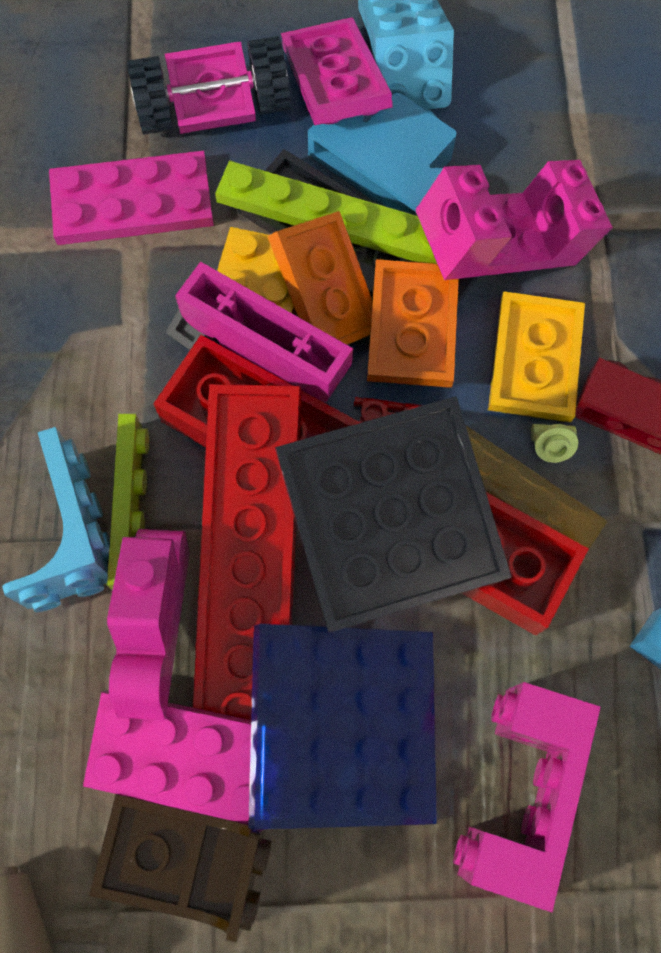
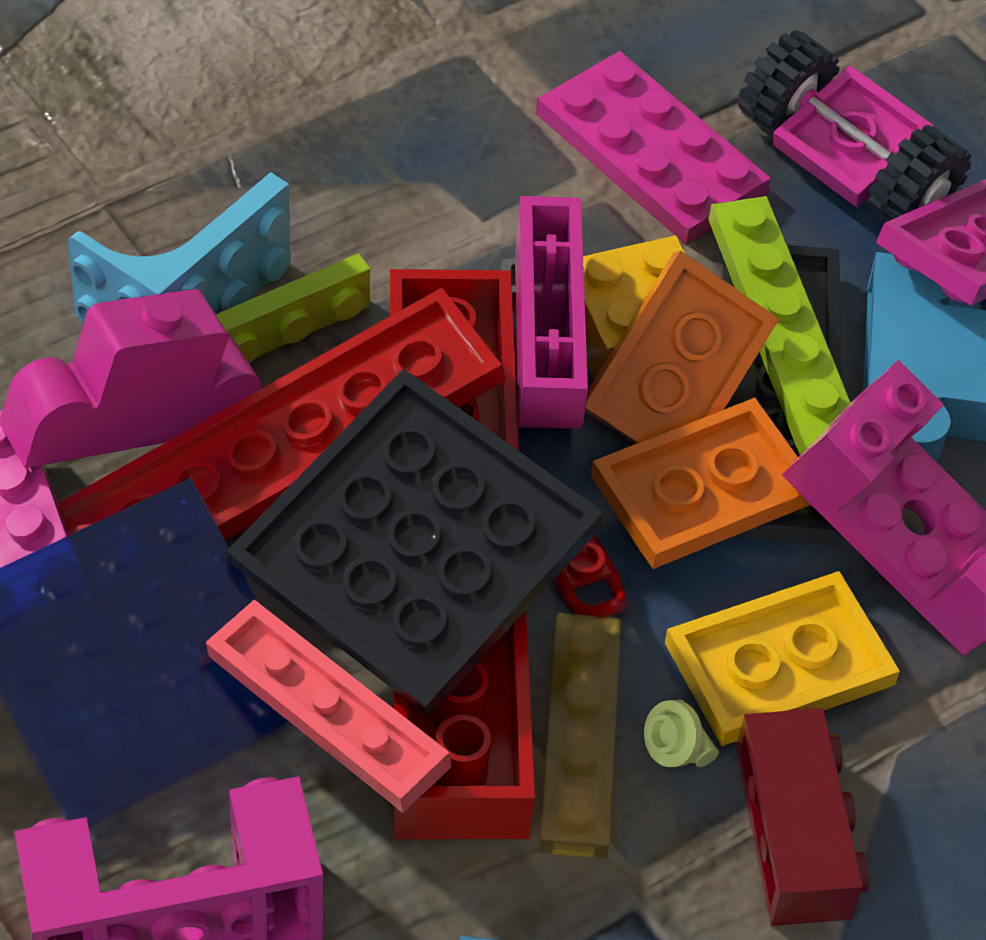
camera: 55 degrees right, 20 degrees down
(470, 632) = (329, 705): none -> coral plate

